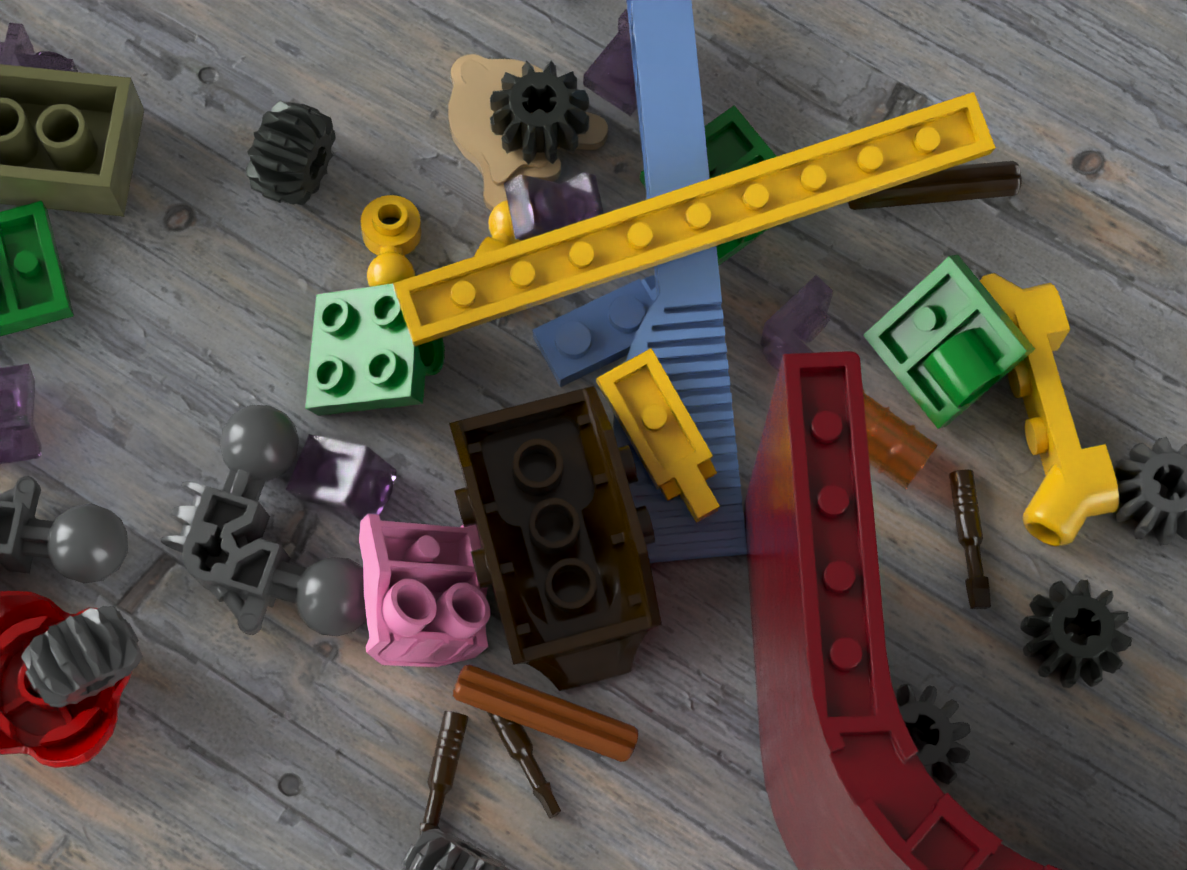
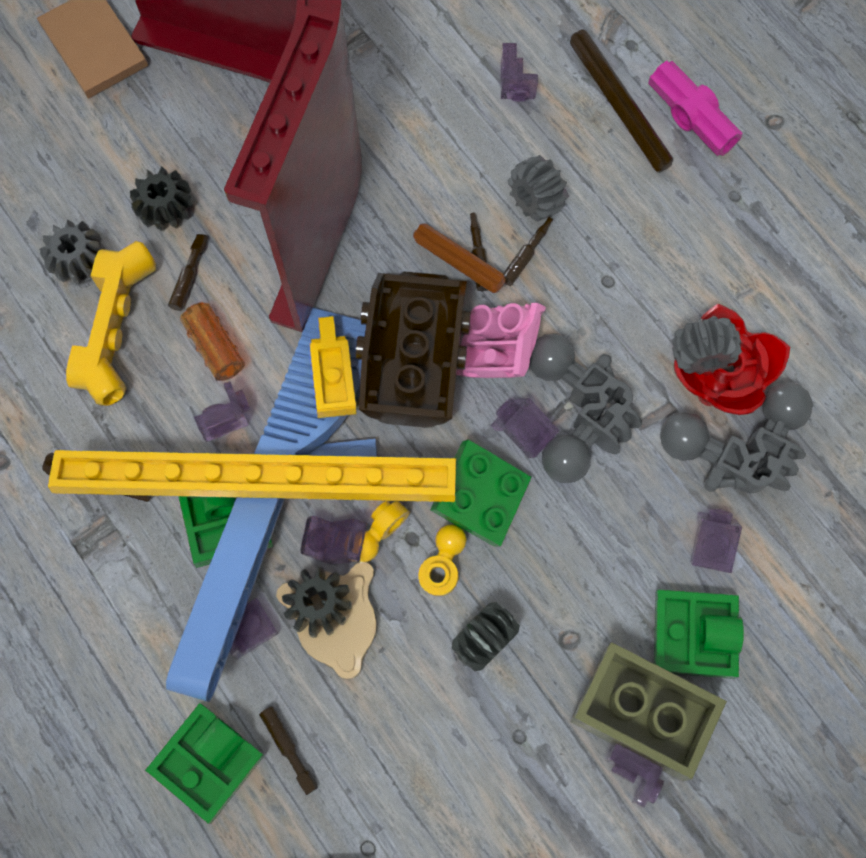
camera: 155 degrees left, 0 degrees up
(948, 341) = (143, 366): green plate -> none

